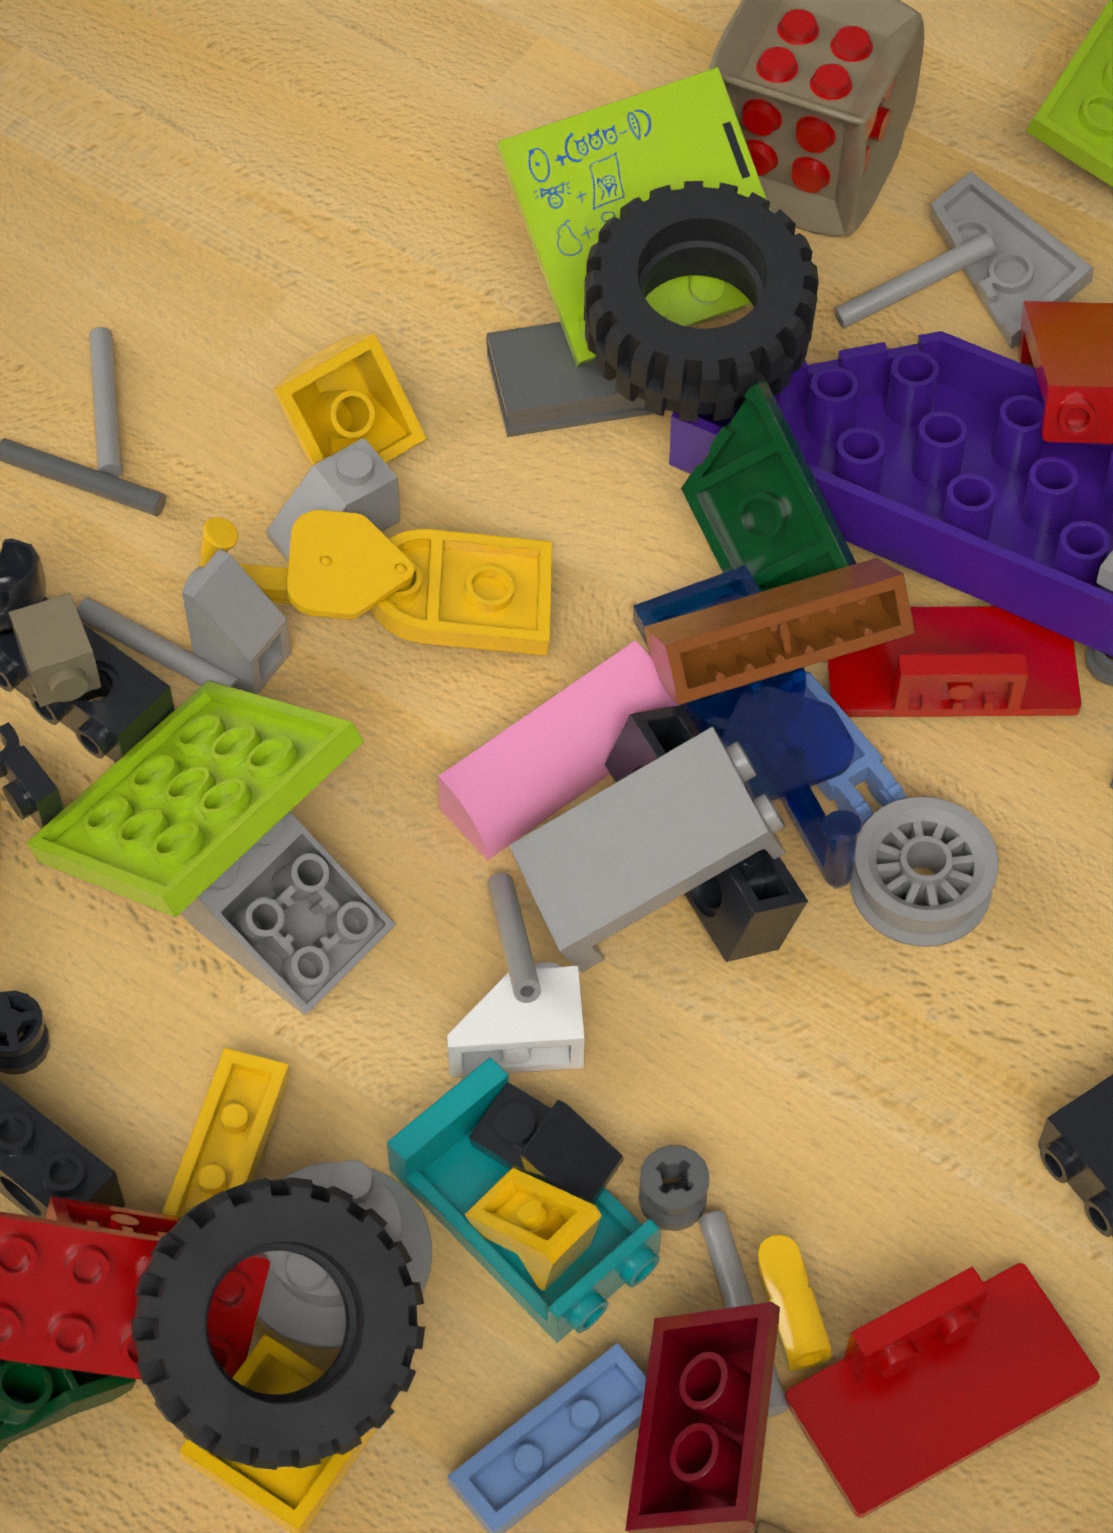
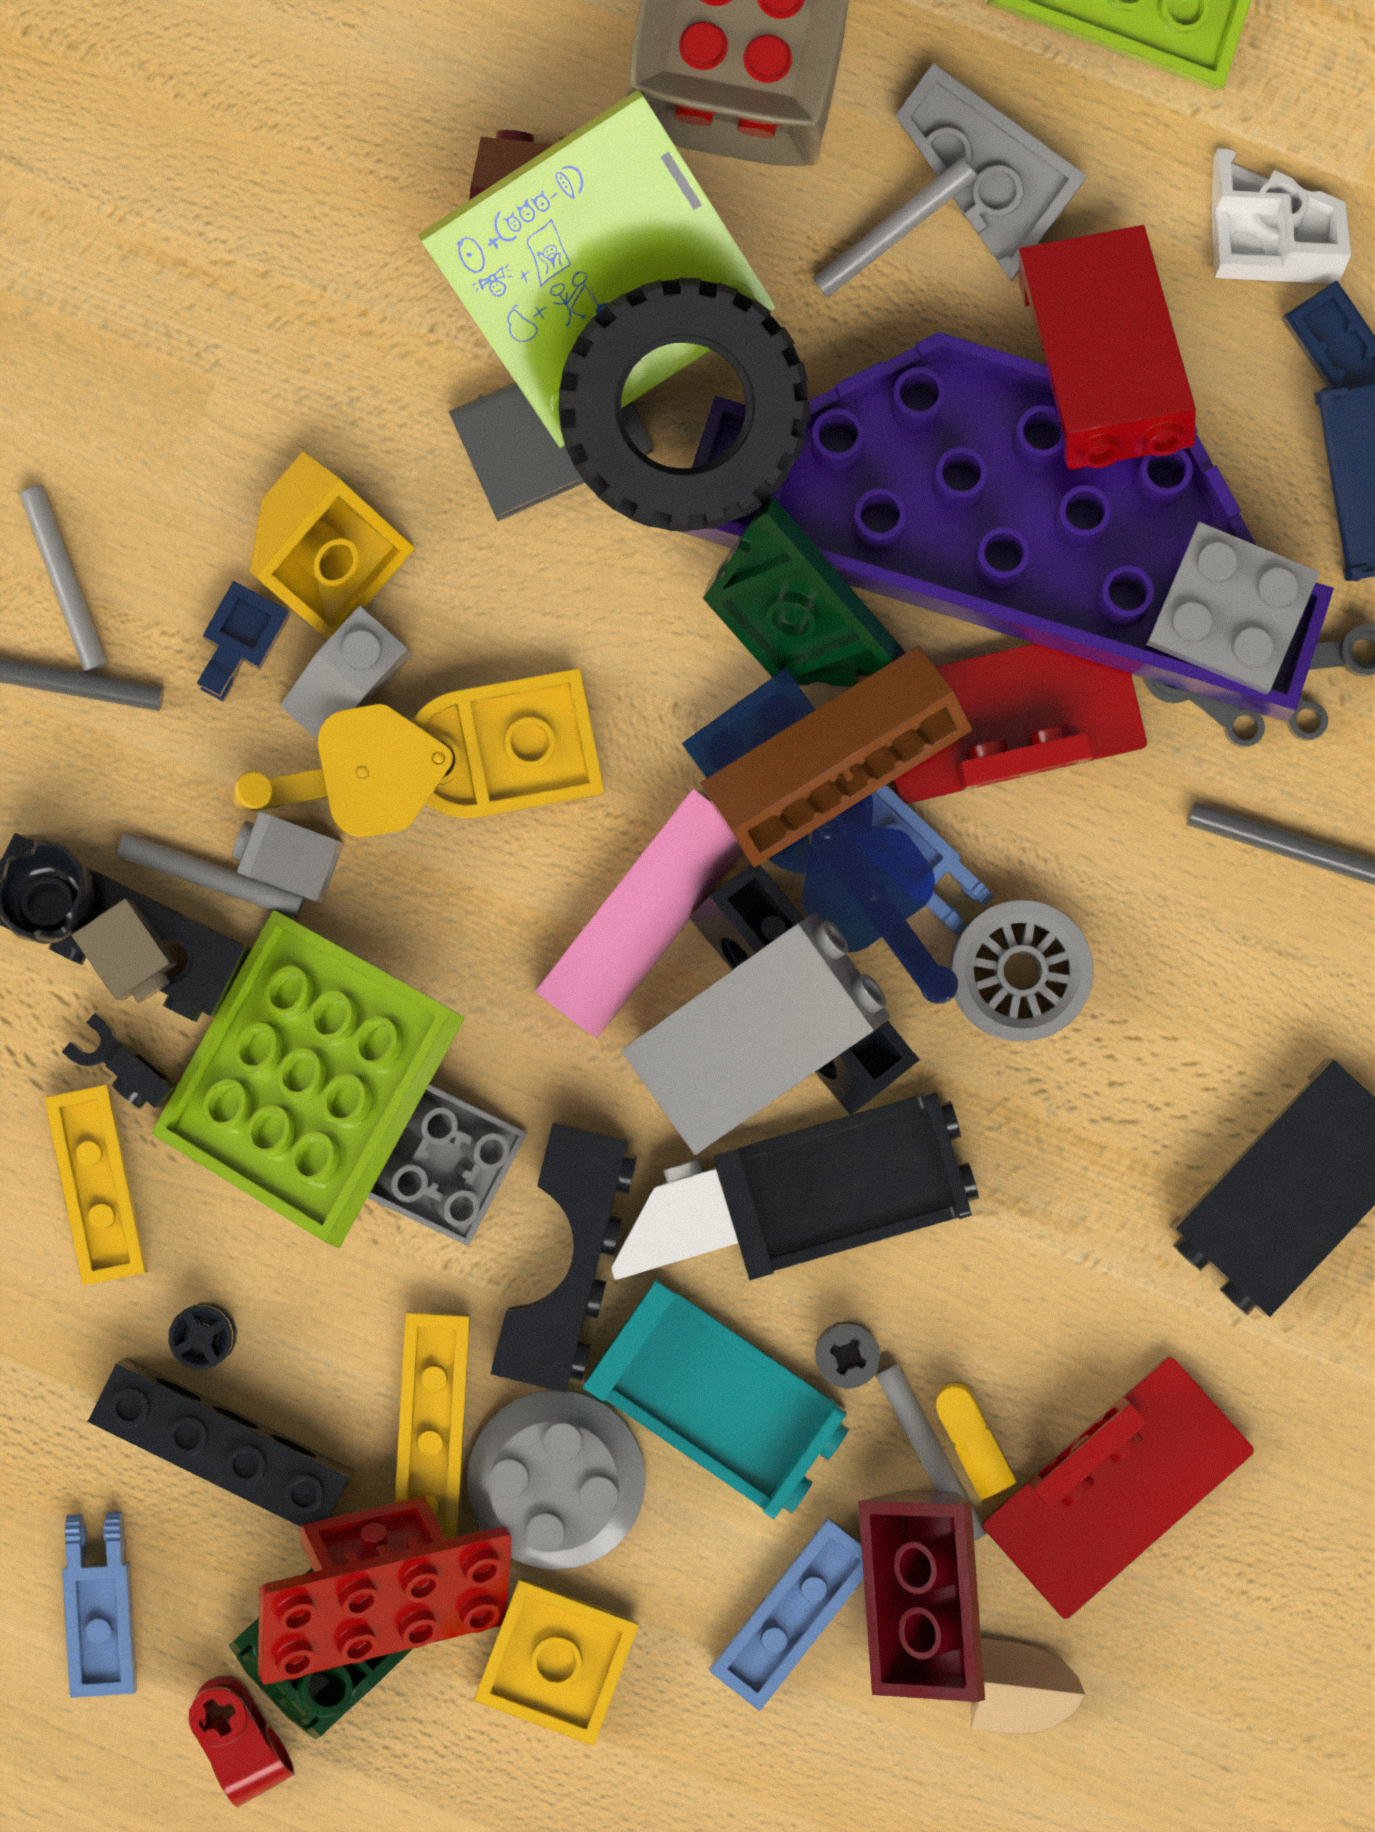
camera: 10 degrees left, 30 degrees up
(249, 461) = (244, 631): none -> dark blue plate
(363, 1096) = (542, 1338): none -> black arch
(377, 1343) = (584, 1675): black tyre -> none
(514, 938) = (648, 1147): light grey piece -> none
(536, 1223) = (731, 1431): yellow slope -> none
(546, 1143) = (725, 1348): black slope -> none
(708, 1030) = (845, 1183): none -> black panel

